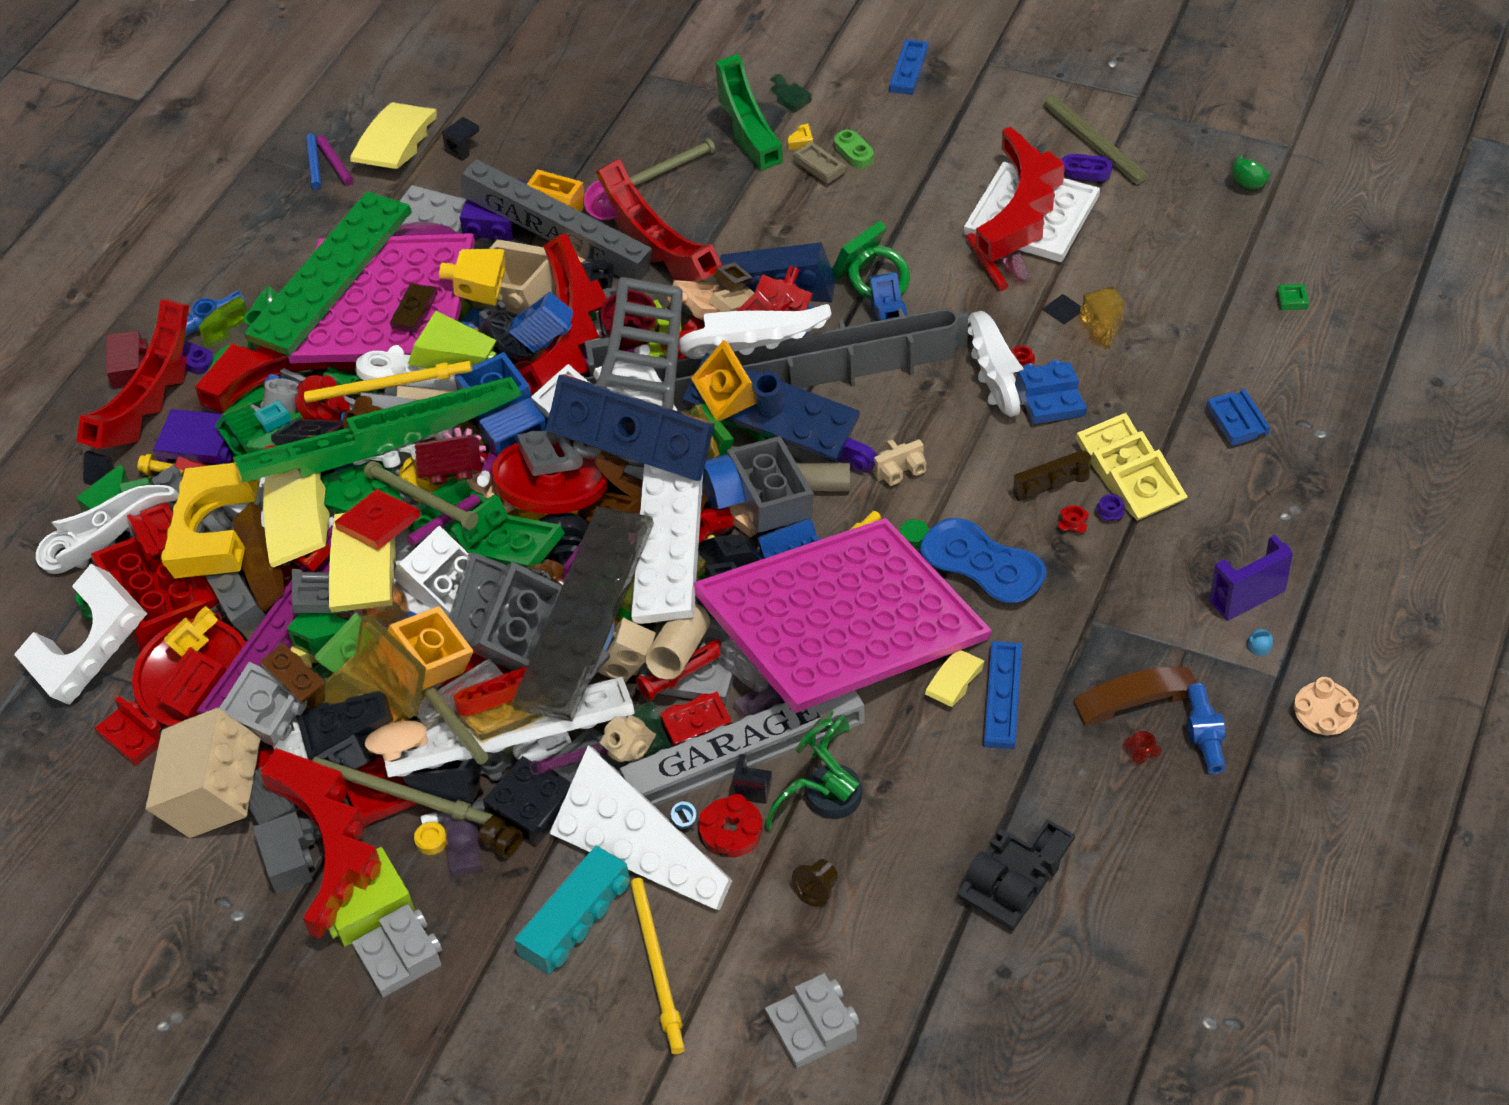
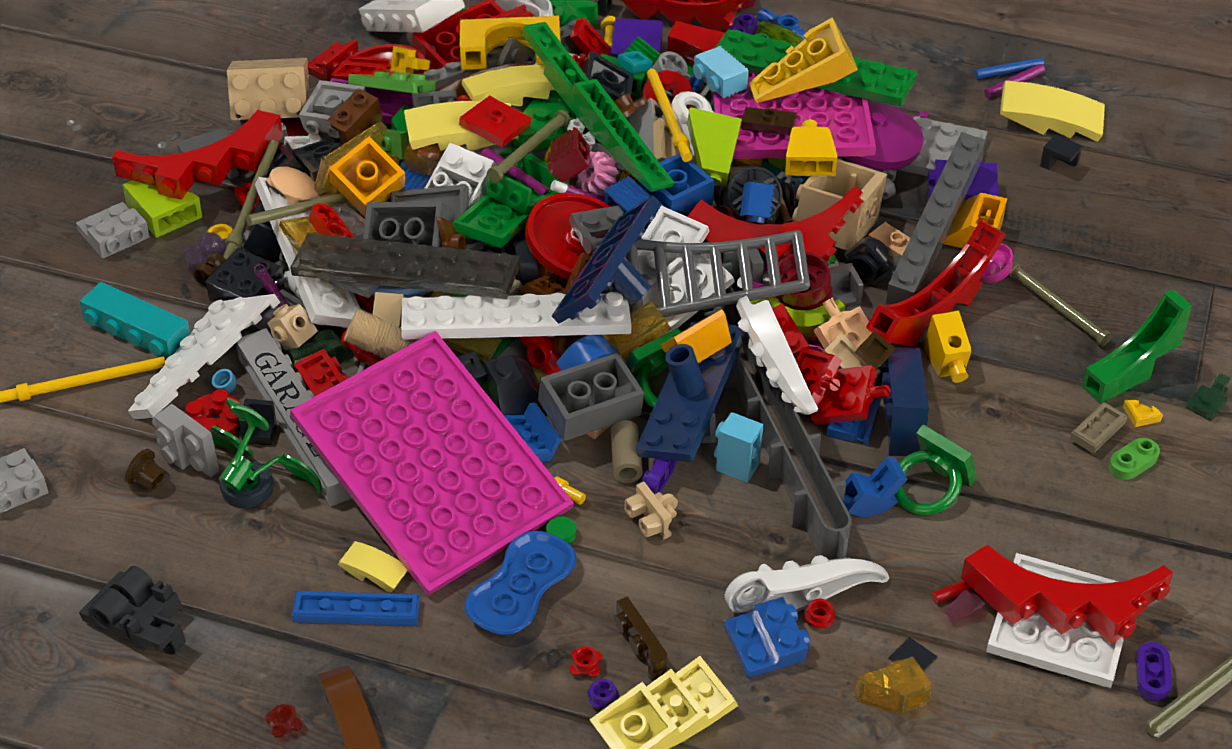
camera: 80 degrees right, 5 degrees down
(254, 627) = (398, 81): none -> bright green wing
(324, 338) = (721, 72): none -> medium azure brick
(347, 256) = (814, 62): none -> yellow wedge
(722, 232) = (948, 346): none -> yellow torso
(784, 832) = (185, 441): none -> light grey plate
(837, 380) = (738, 446): none -> medium azure brick

